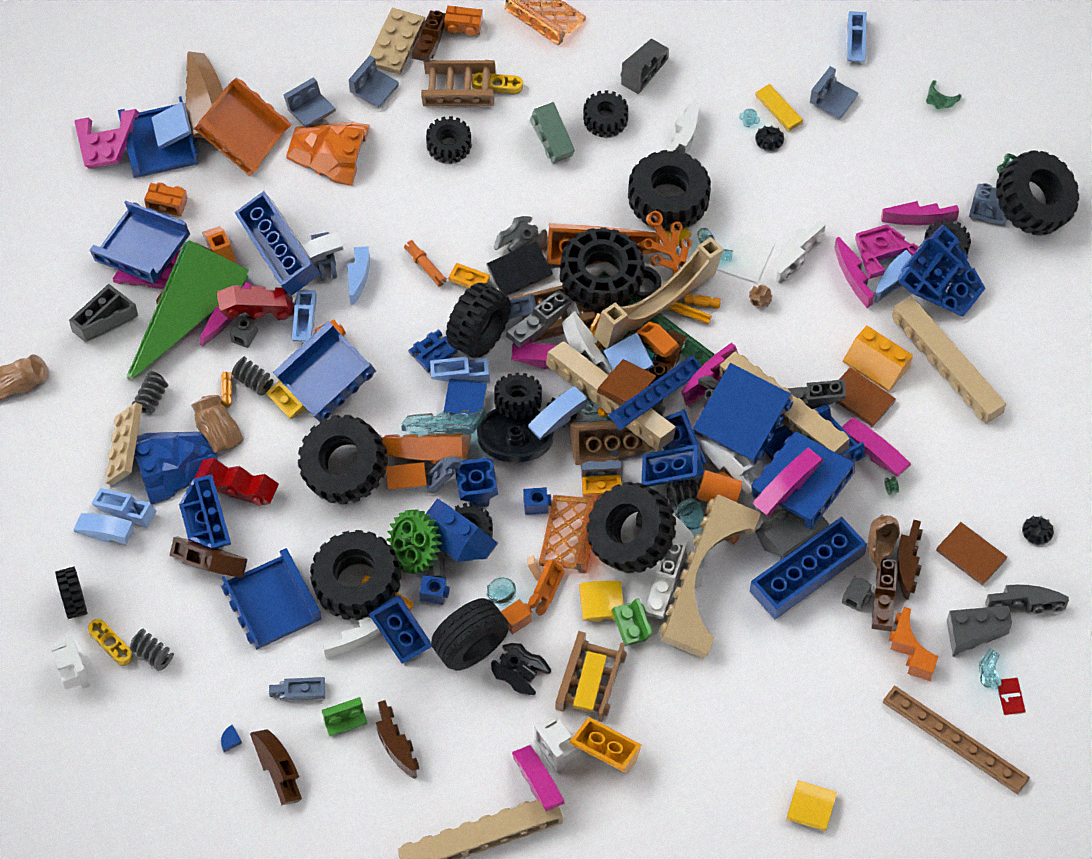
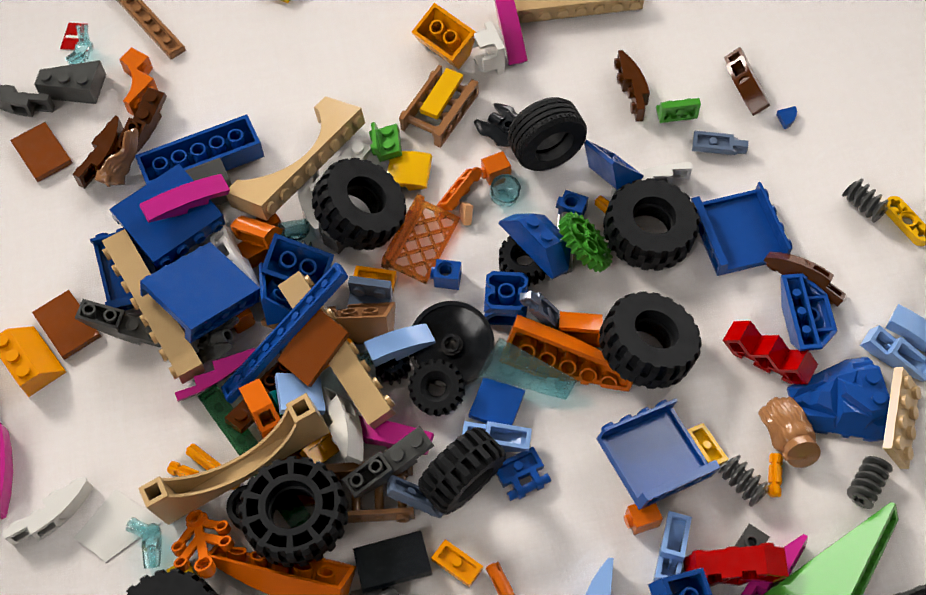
camera: 165 degrees left, 0 degrees up
(760, 296) = (120, 459): medium nougat gear -> none
(857, 593) = (165, 130): dark grey brick -> none
(877, 448) = (79, 263): dark pink slope -> none
(891, 485) = (82, 224): clear green bush -> none

